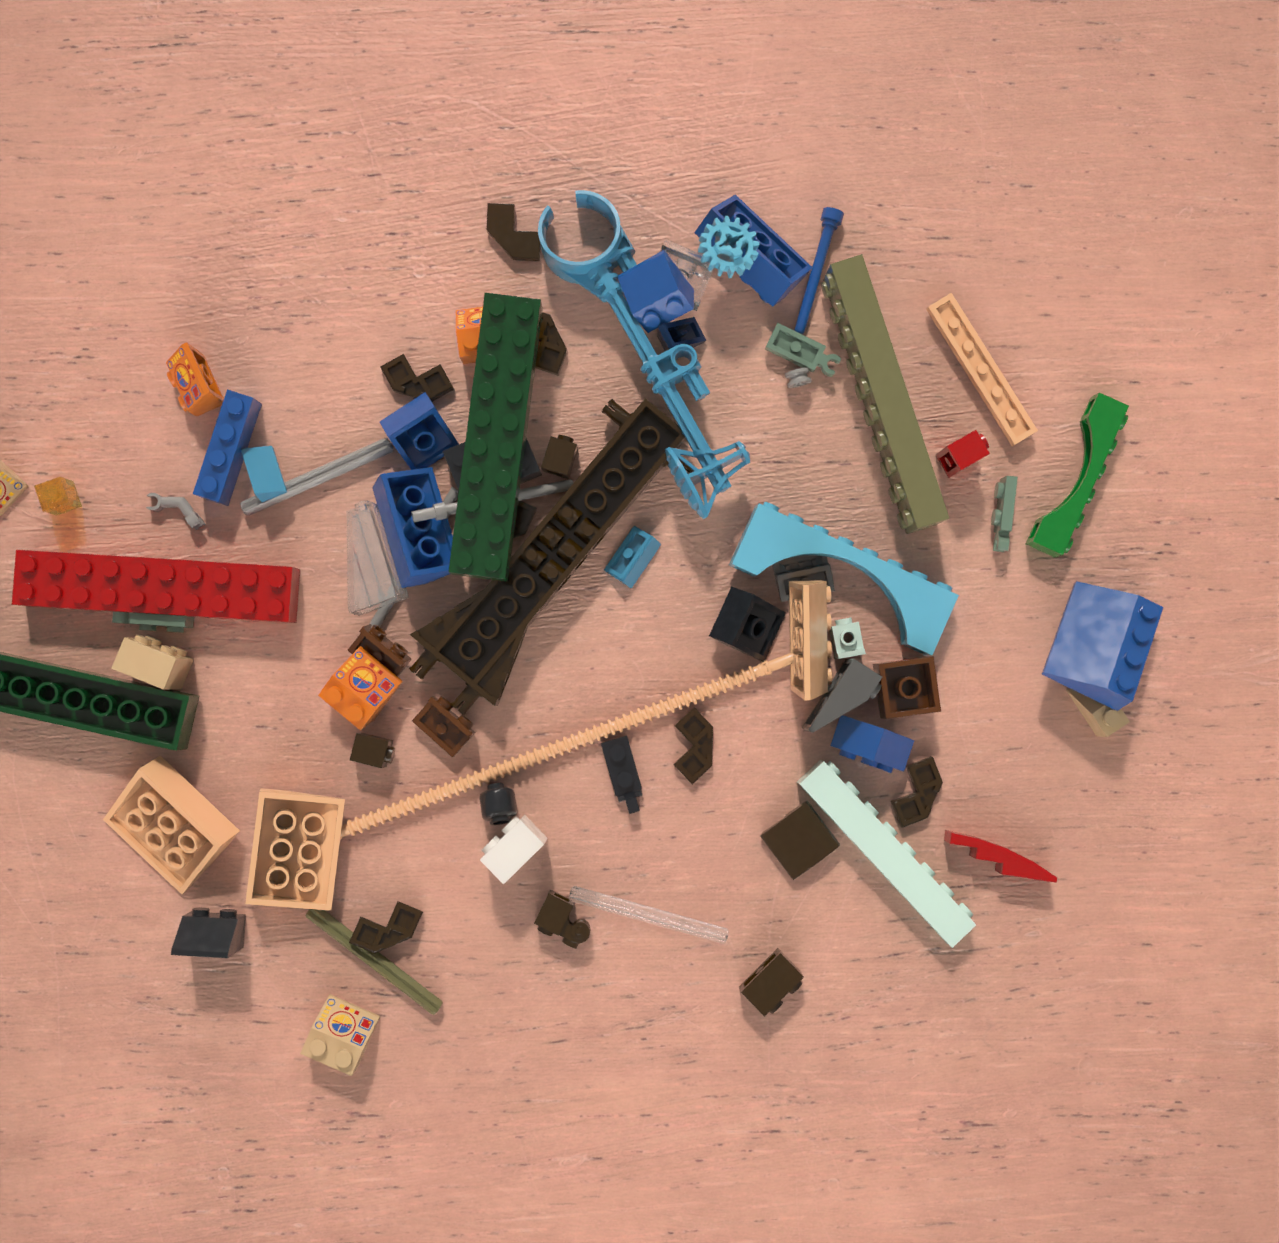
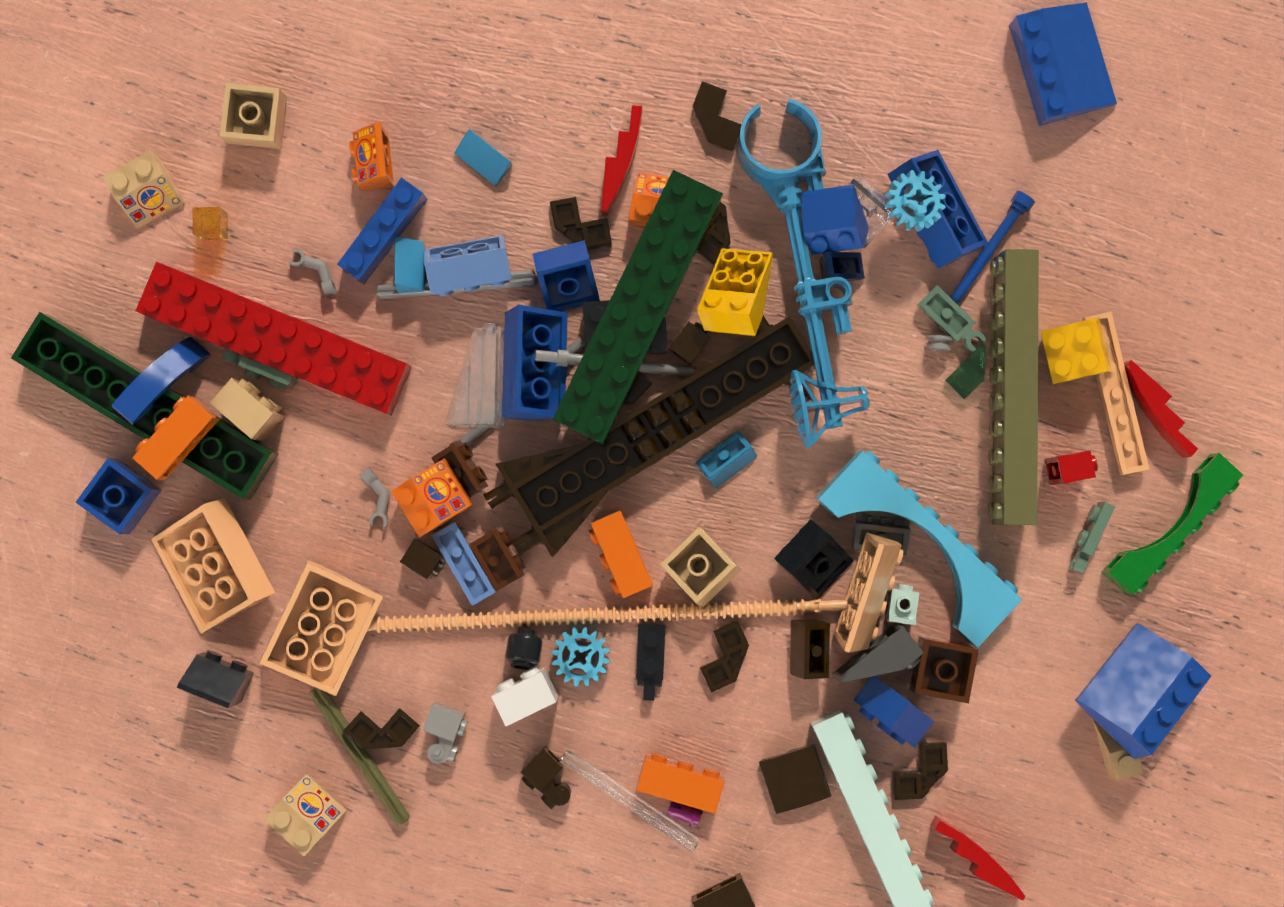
camera: 25 degrees right, 0 degrees up
(55, 660) = (158, 378): none -> blue slope
(55, 789) = (118, 496): none -> blue brick
(64, 378) = (253, 115): none -> tan brick
(89, 713) = (175, 437): none -> orange brick
(302, 346) = (483, 157): none -> dark azure slope
(315, 705) = (384, 495): none -> light grey arm
(319, 454) = (467, 265): none -> medium blue slope
(413, 741) = (463, 563): none -> medium blue plate
(435, 311) = (618, 168): none -> red slope
(448, 901) = (446, 725): none -> light grey brick
(560, 681) = (620, 554): none -> orange brick
(565, 800) = (588, 666): none -> medium azure gear
(587, 393) = (736, 292): none -> yellow slope
(641, 667) = (700, 567): none -> tan brick
(691, 881) = (680, 783): none -> orange brick
(705, 908) = (685, 813): none -> magenta pin
(772, 711) = (810, 649): none -> dark brown brick
(824, 72) = (1062, 62): none -> blue slope
(836, 397) = (969, 373): none -> clear green slope
(930, 340) = (1076, 351): none -> yellow brick
(1018, 364) = (1152, 401): none -> red slope

